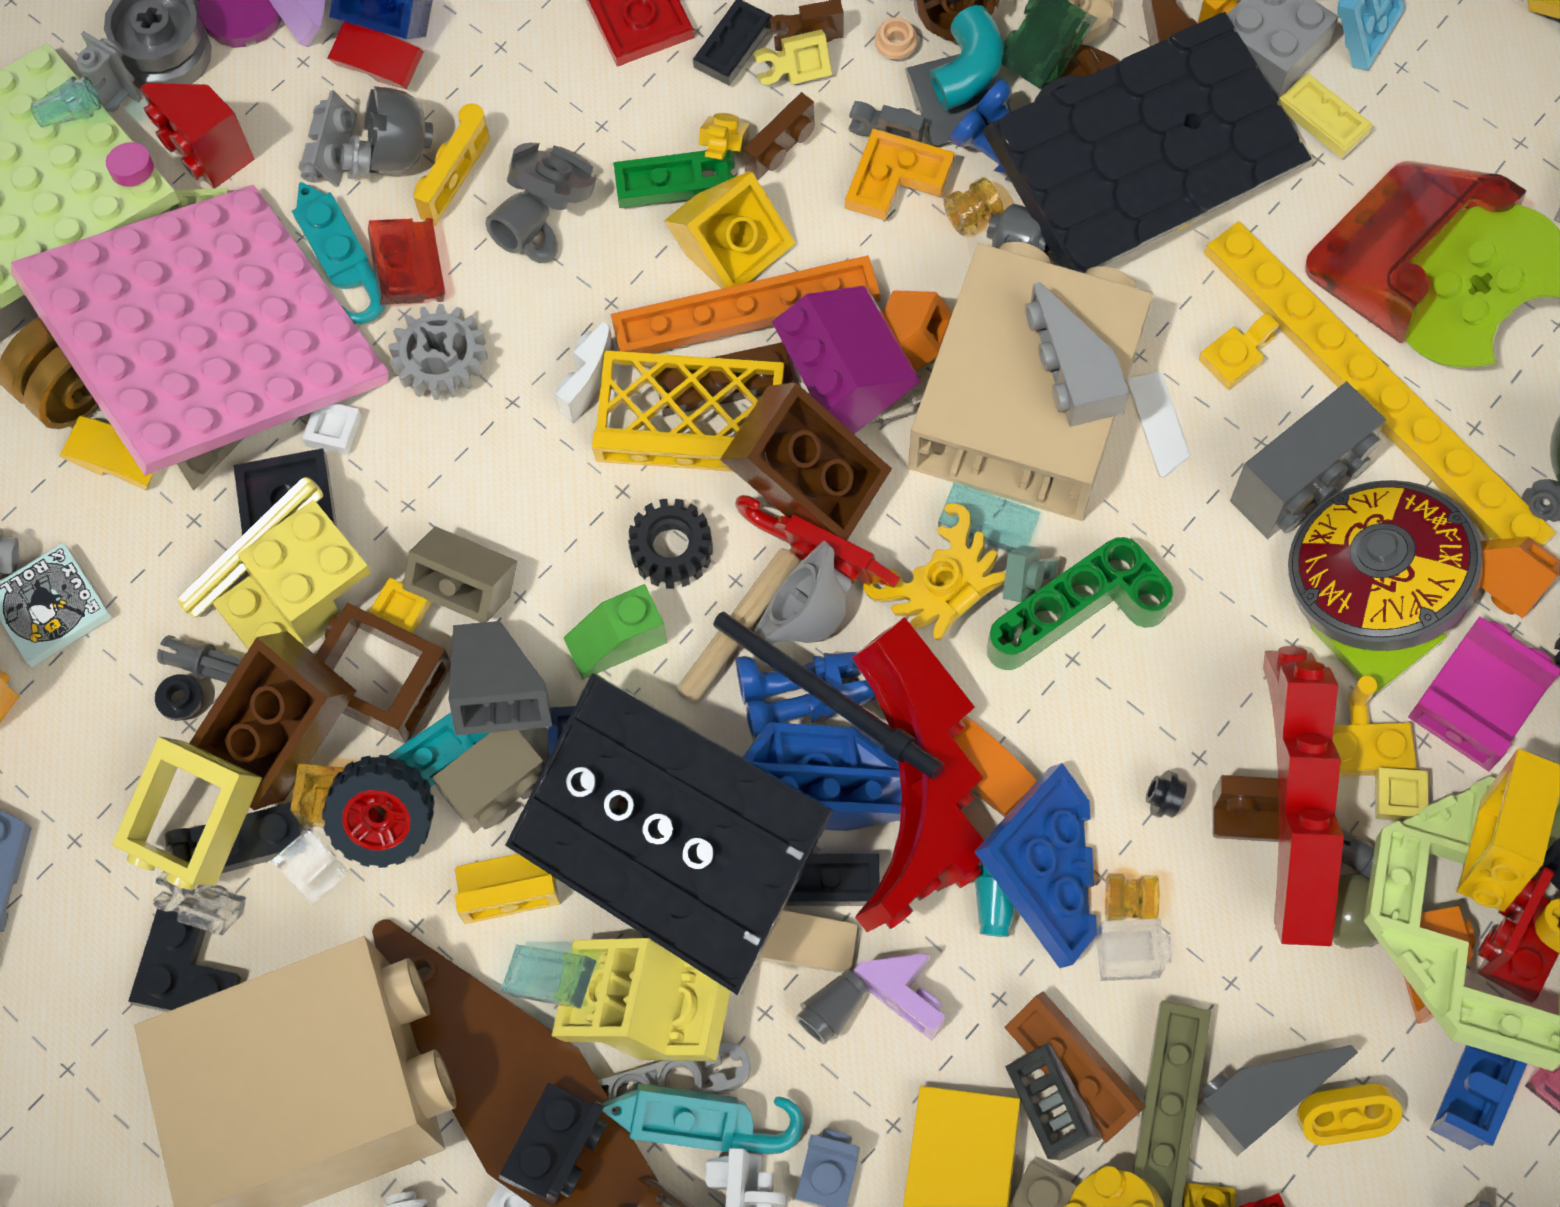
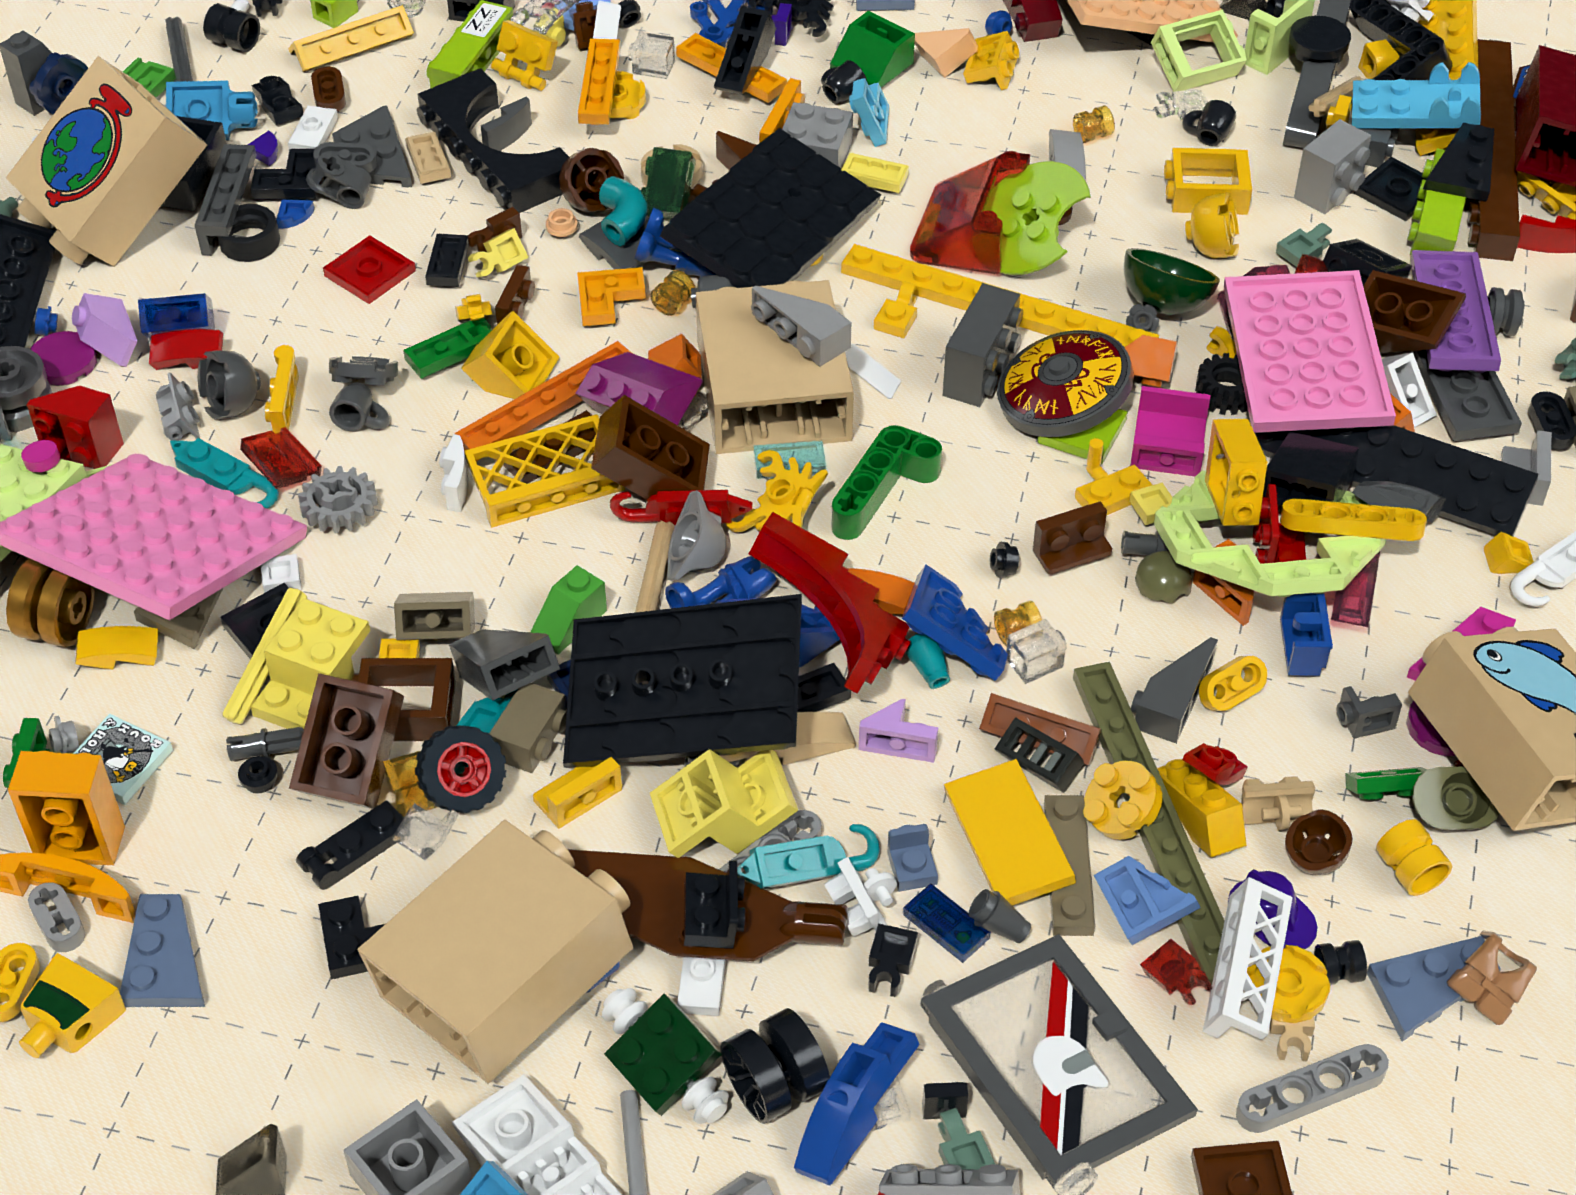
camera: 30 degrees left, 20 degrees down
(204, 907) = (359, 884): clear plate -> none
(221, 829) = (313, 780): light yellow window -> none
(356, 157) = (208, 408): light grey plate -> none
(548, 976) = (644, 820): clear light blue tile -> none
(668, 518) = (576, 533): black tyre -> none
(831, 1007) = (854, 765): dark grey cone -> none
(890, 119) = (588, 262): dark grey plate -> none
(896, 742) = (811, 579): black bar -> none
(1026, 572) = (837, 466): sand green plate -> none
(1308, 780) = (1092, 492): red arch -> none

